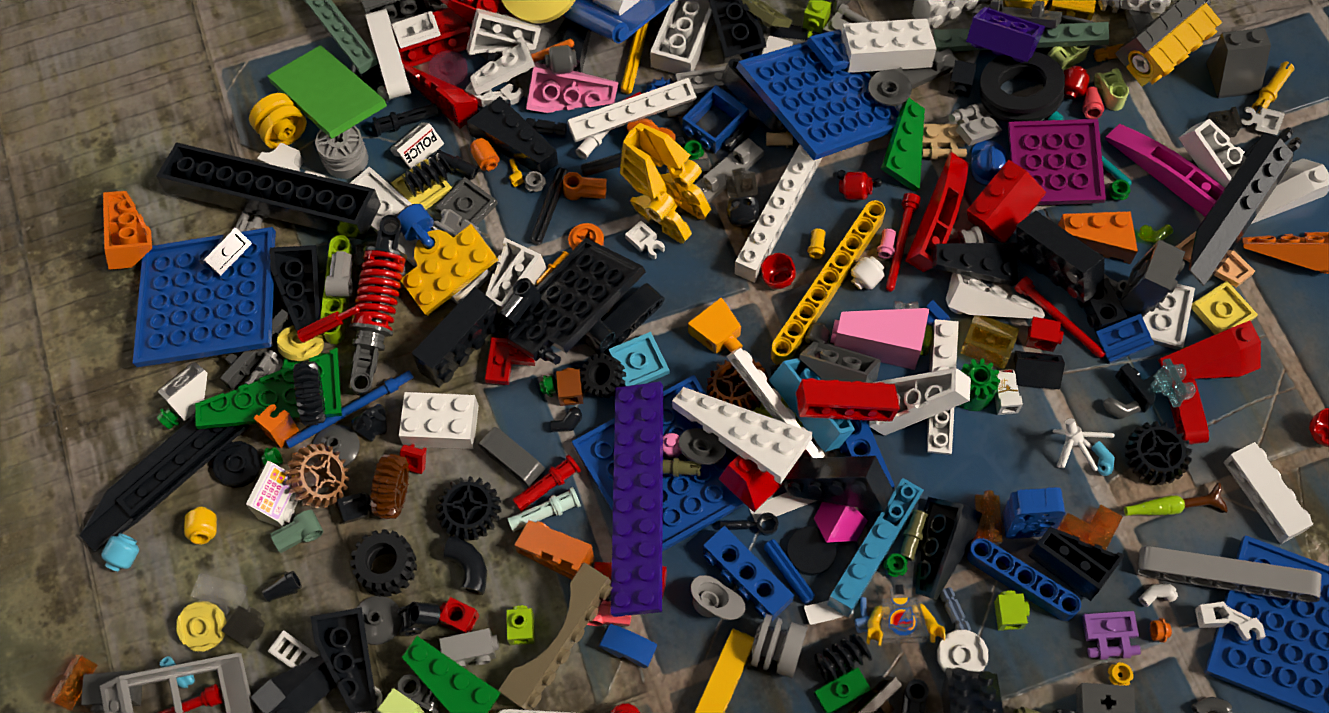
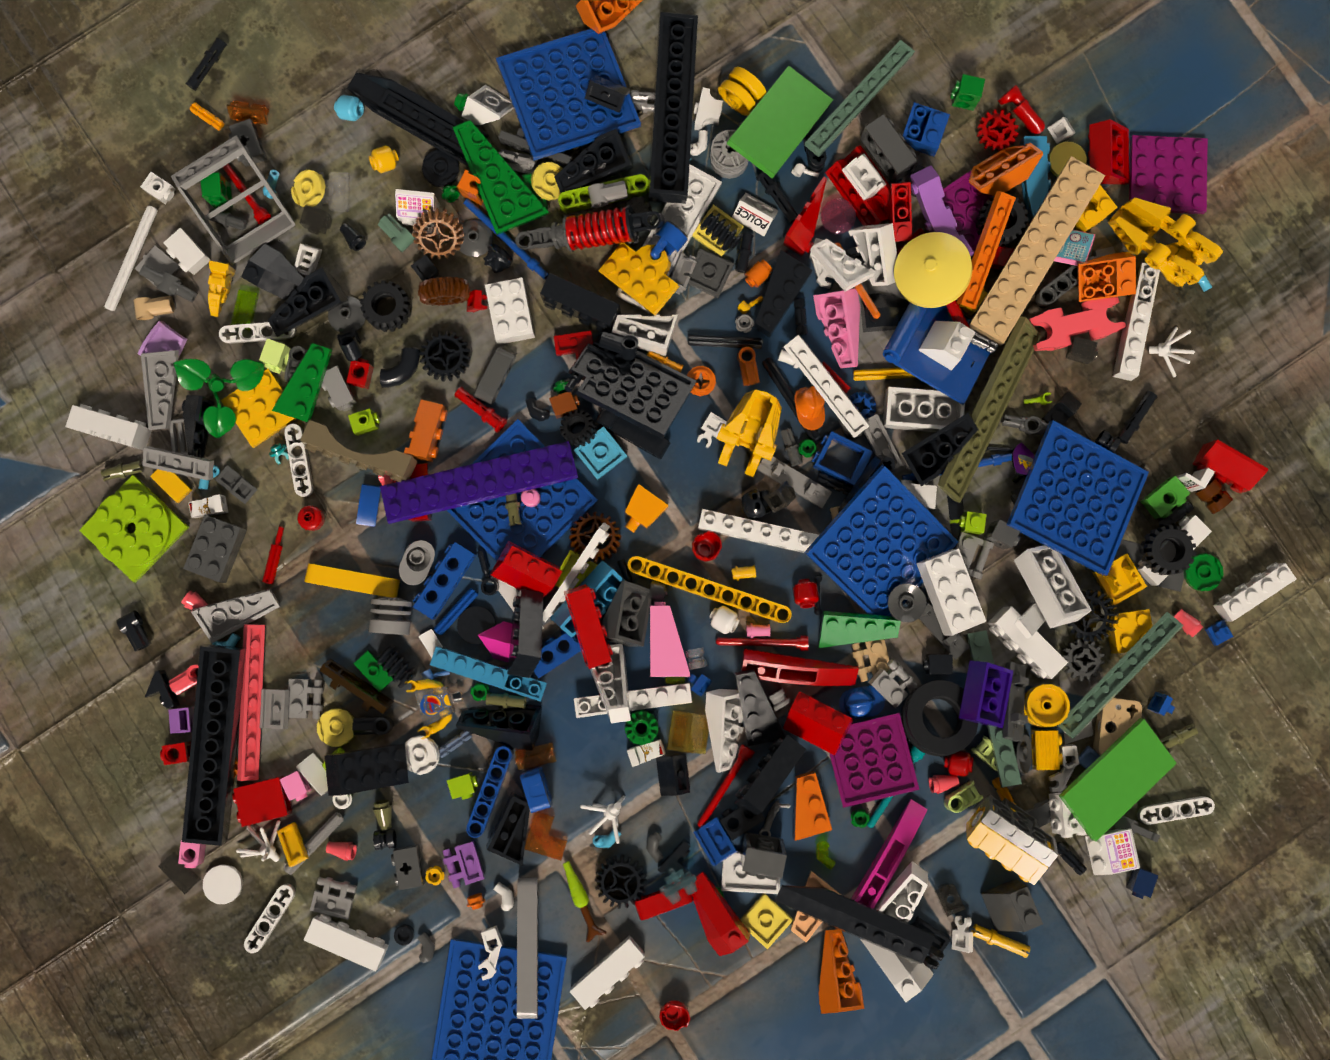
camera: 75 degrees right, 20 degrees up
(309, 393) = (495, 205): black gear -> none
(325, 324) = (561, 196): red axle -> none
(388, 54) = (828, 161): white beam -> none
(555, 505) = (463, 421): light aqua pin -> none
(561, 59) = (857, 312): dark grey head -> none
(701, 446) = (541, 521): dark grey dish -> none
(749, 434) = (544, 560): white wing -> none
(829, 50) = (931, 542): blue wing -> none
(1044, 334) = (704, 775): red brick -> none

